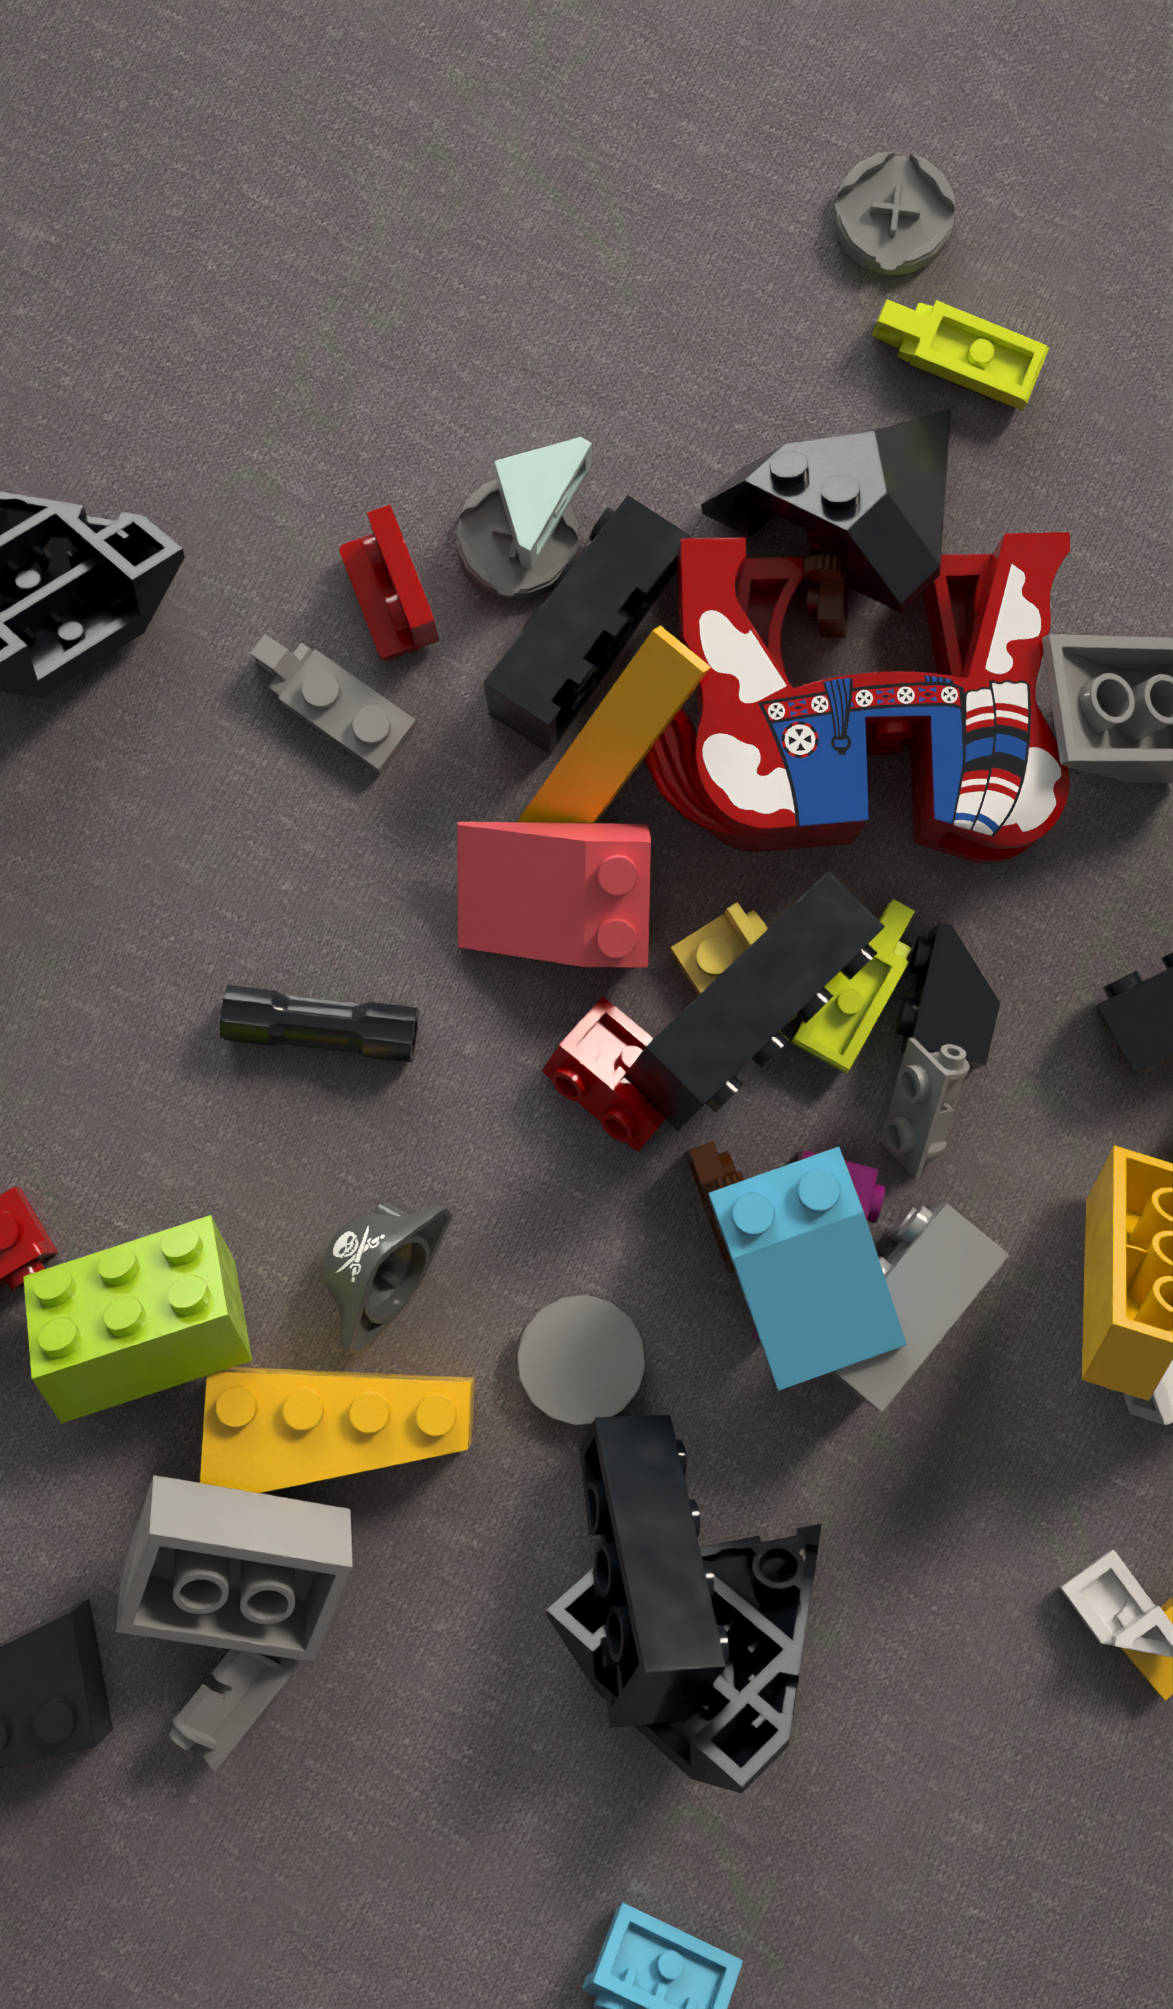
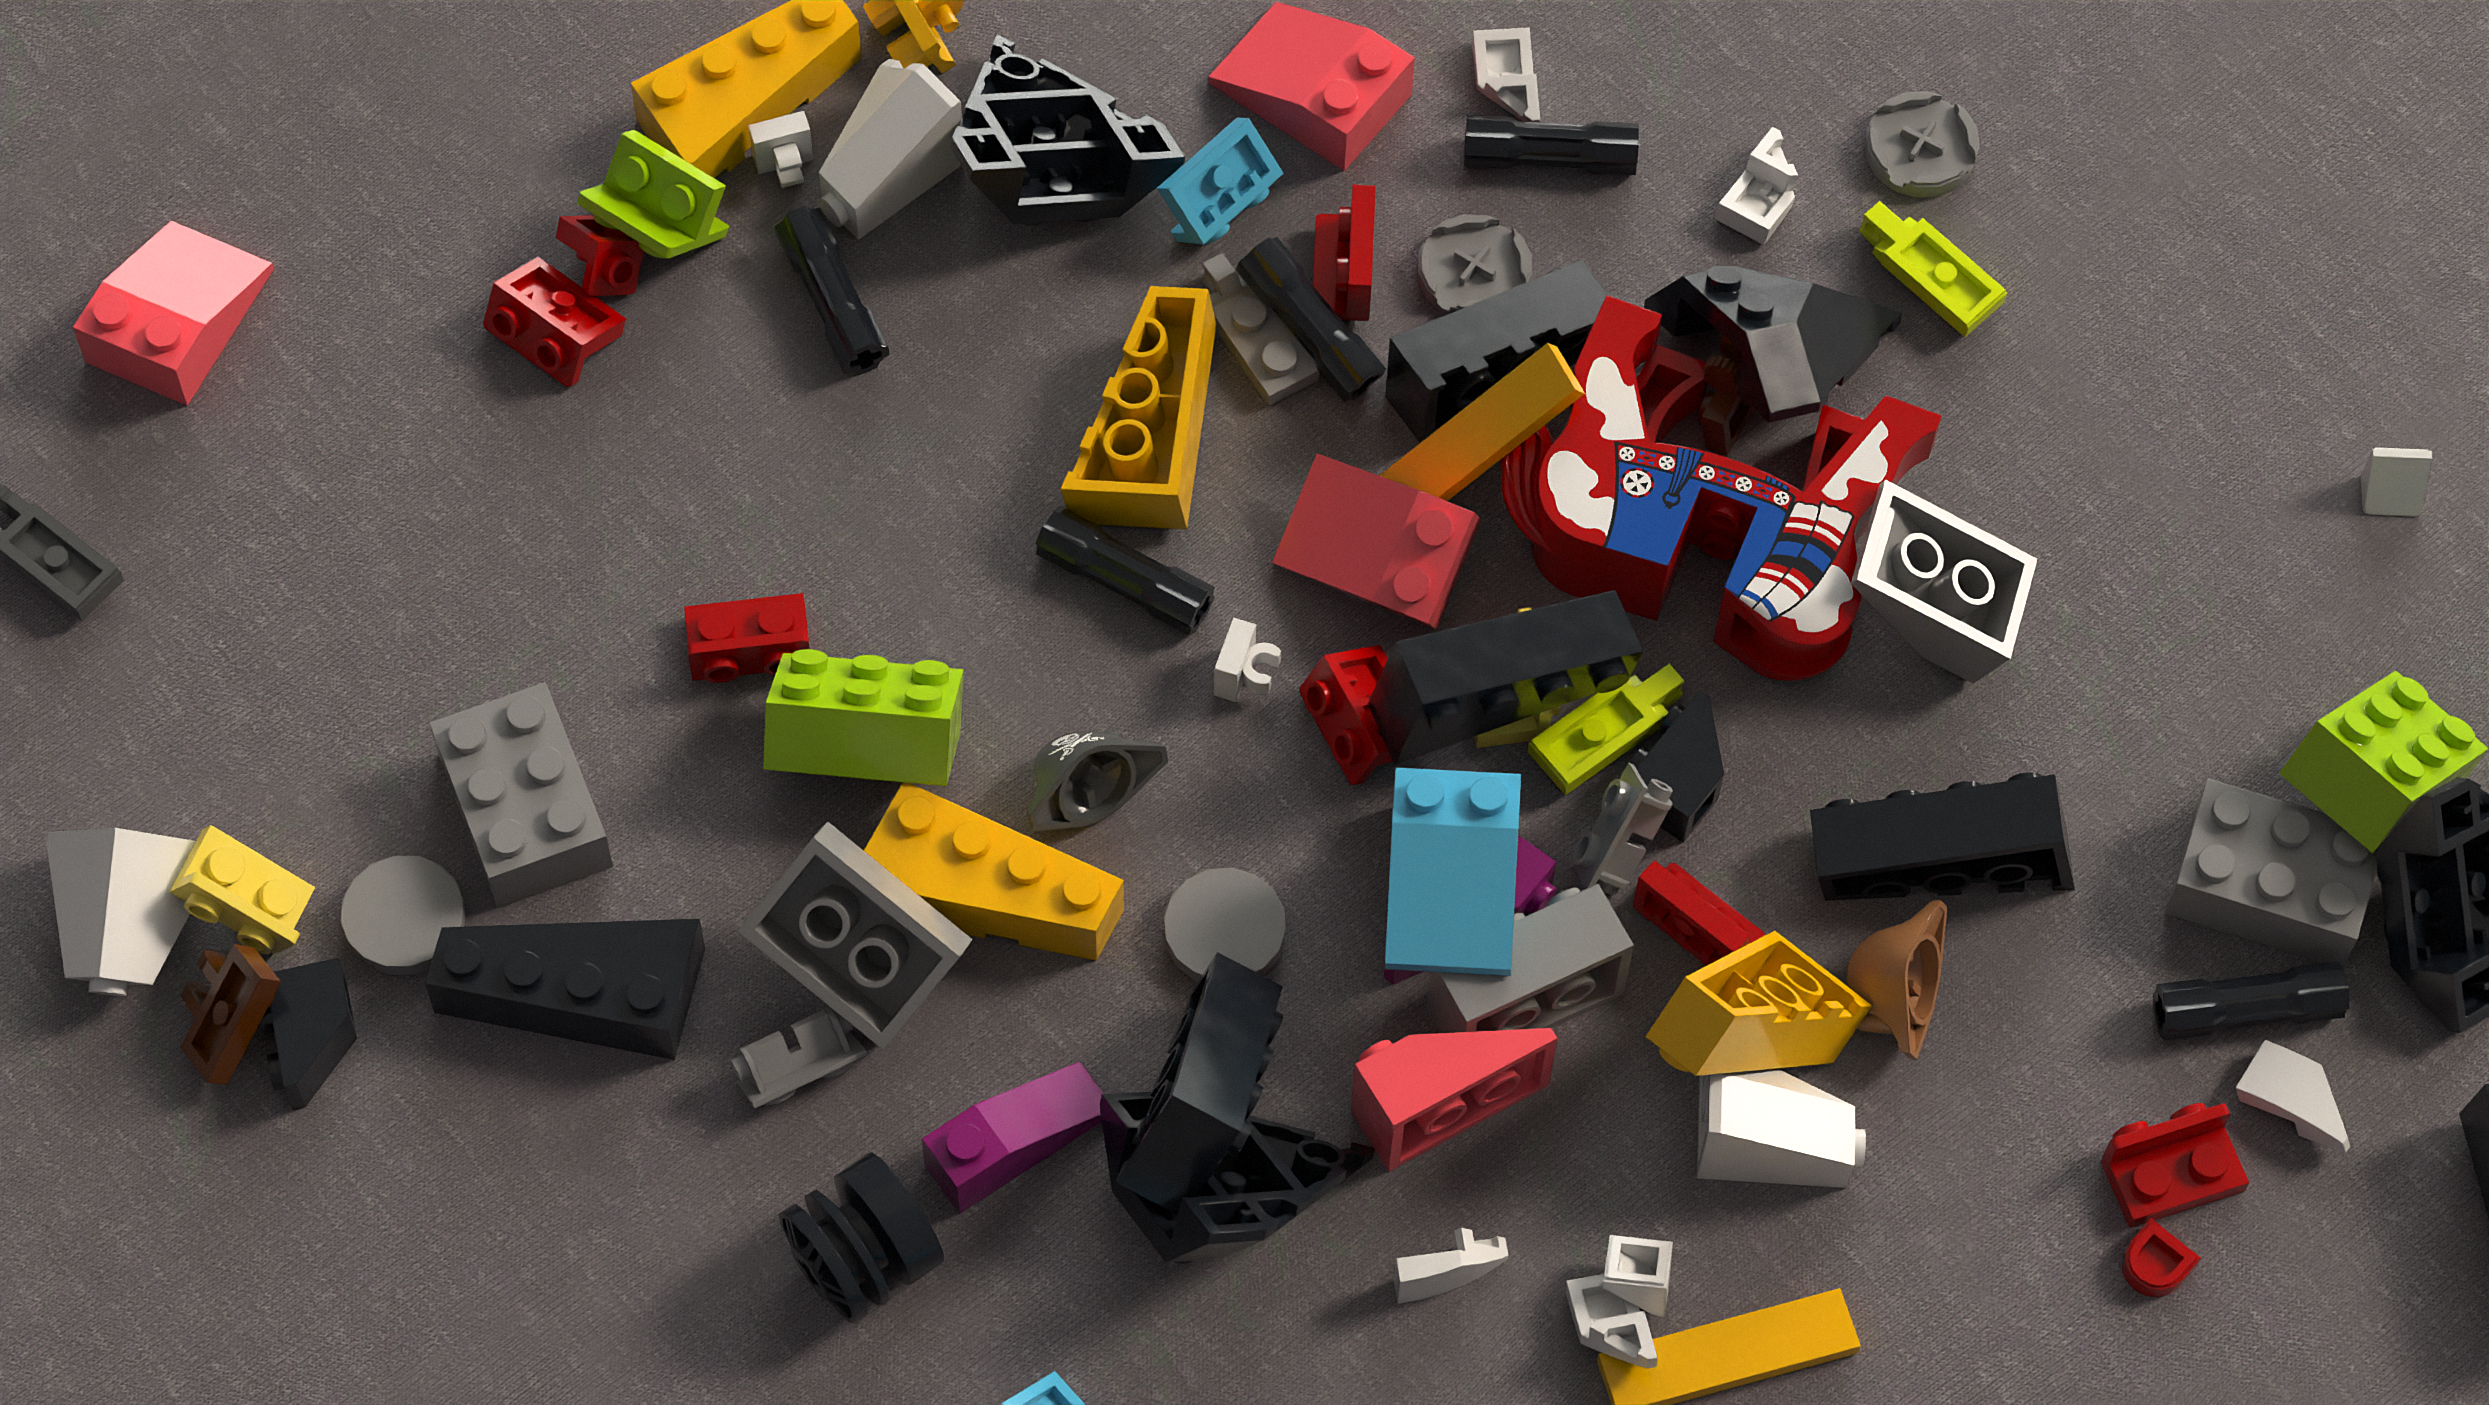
camera: 25 degrees right, 20 degrees down
(229, 560) = (1220, 183): none -> medium azure bracket
(272, 394) = (1318, 80): none -> coral slope
(277, 864) = (1147, 434): none -> yellow wedge
(344, 650) = (1337, 351): none -> black axle
(380, 1875) = (871, 1231): none -> black wheel
(457, 304) = (1506, 70): none -> white slope
(474, 1074) = (1239, 658): none -> white tile
(476, 1673) = (1010, 1134): none -> magenta slope
(538, 490) = (1510, 230): light aqua slope -> none
(579, 355) = (1594, 146): none -> black axle
(762, 333) = (1761, 193): none -> white slope
(865, 1466) = (1444, 1083): none -> coral slope
(940, 1639) = (1441, 1272): none -> white slope
(1032, 1154) = (1691, 913): none -> red bracket
(1129, 1553) = (1639, 1271): none -> white slope

